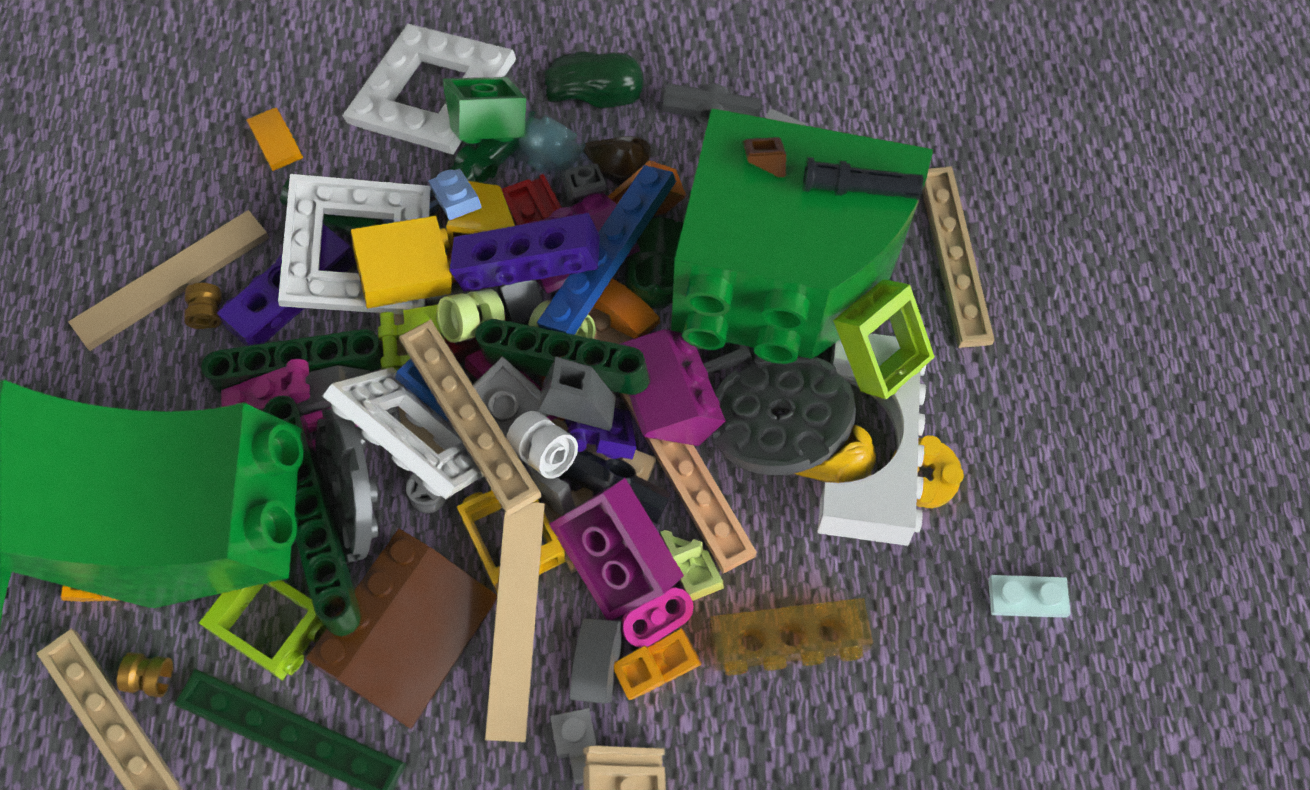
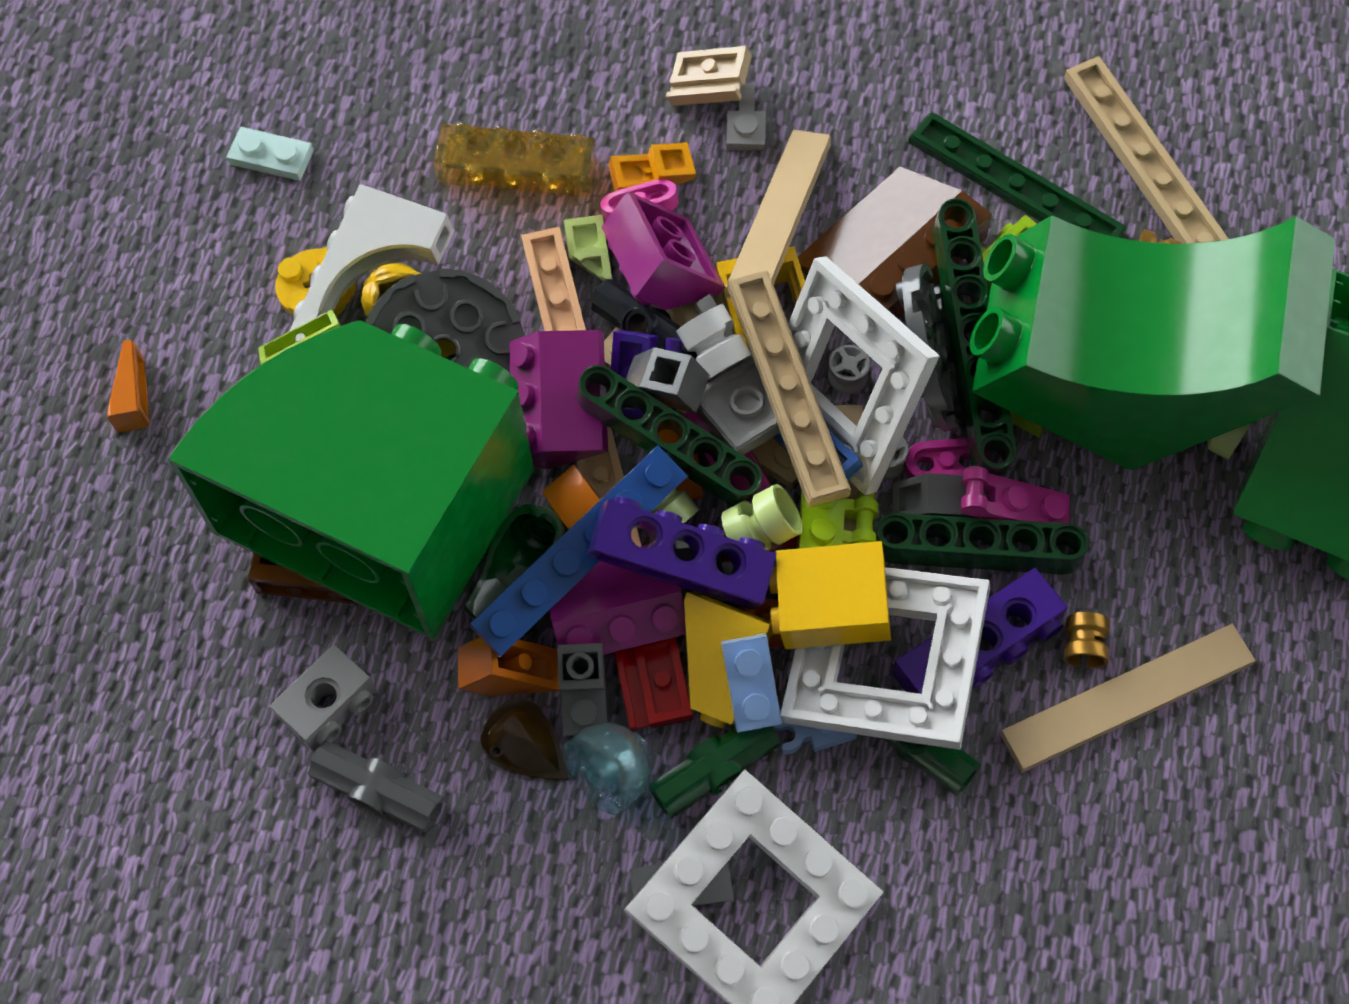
camera: 160 degrees left, 0 degrees up
(274, 138) = (981, 876): light orange slope -> none
(485, 108) = (685, 802): green slope -> none
(594, 660) = (709, 177): dark grey slope -> none
(595, 78) = (524, 871): dark green hair -> none
(766, 154) = (368, 486): reddish brown slope -> none
(844, 178) = (291, 426): black pin -> none
(956, 259) = (156, 533): tan tile -> none
(1031, 337) = (129, 397): none -> orange slope

